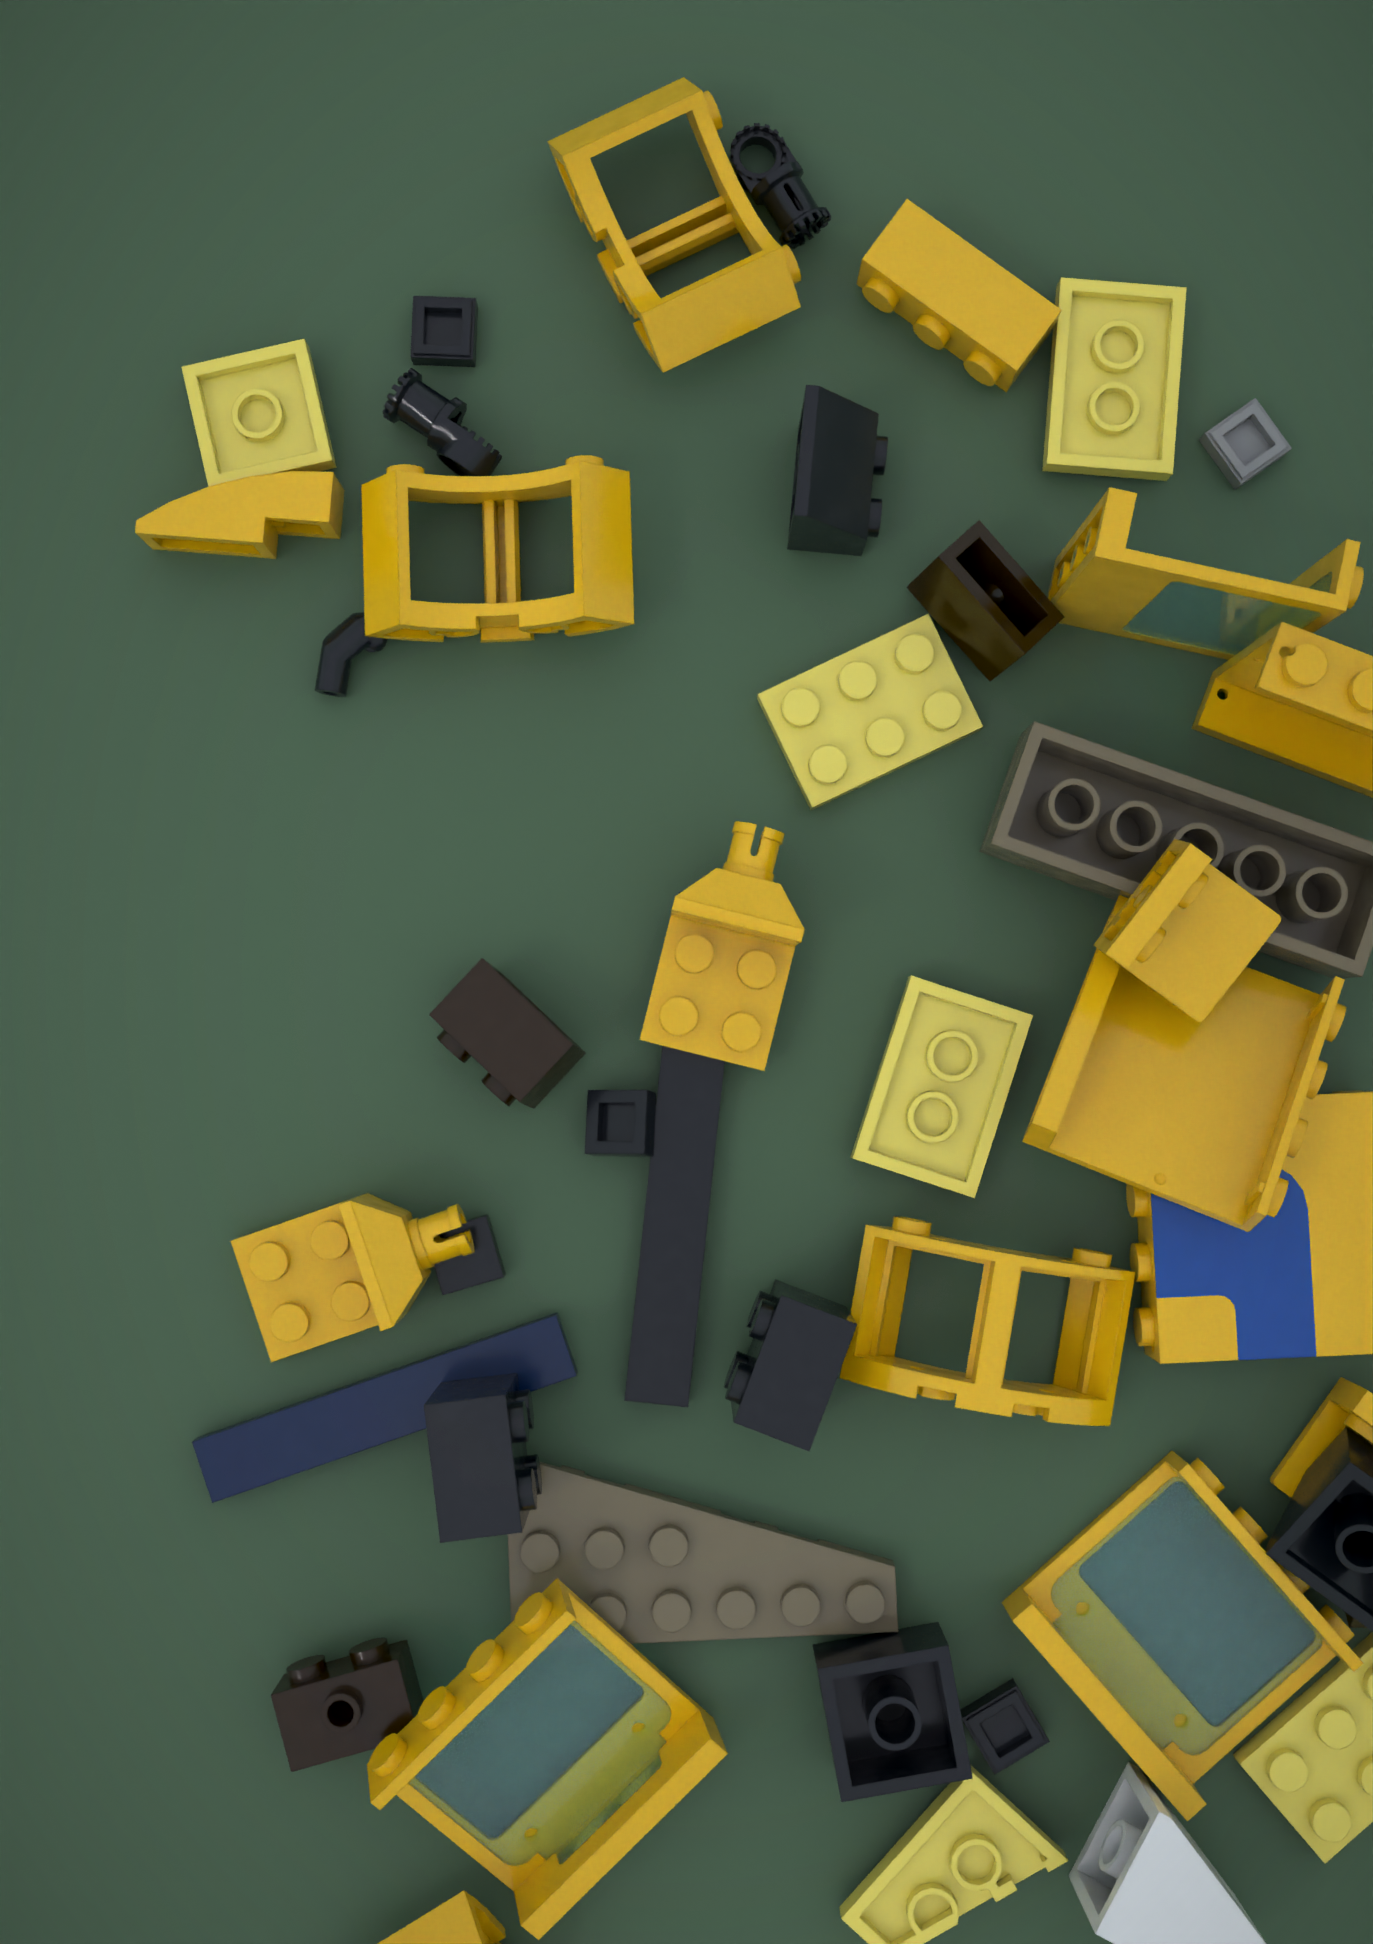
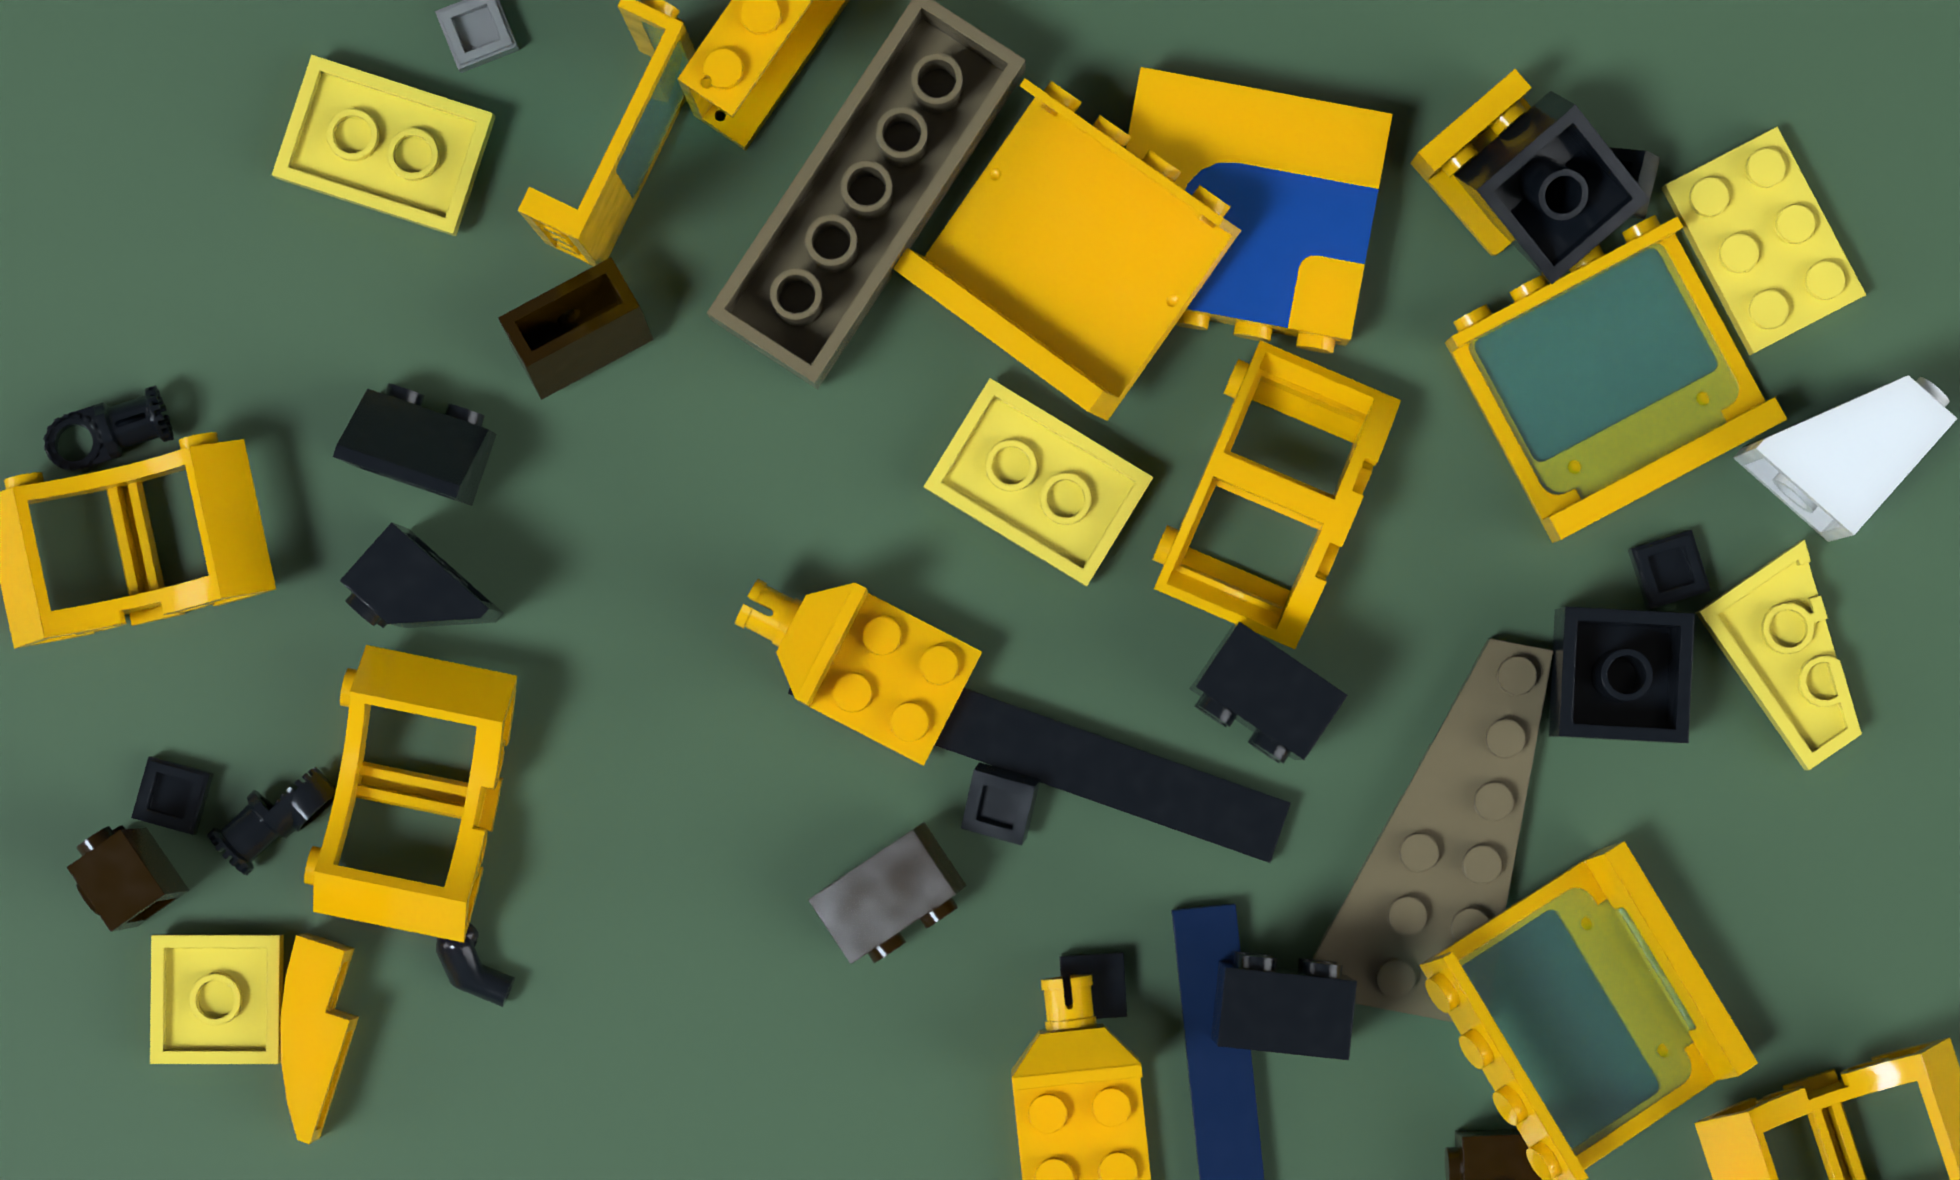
camera: 75 degrees left, 0 degrees up
(351, 295) = (125, 876): none -> dark brown brick
(698, 499) = (412, 586): none -> black slope
(869, 711) = (654, 464): light yellow plate -> none
(956, 297) = (266, 282): yellow brick -> none
(1188, 930) = (943, 218): yellow bracket -> none

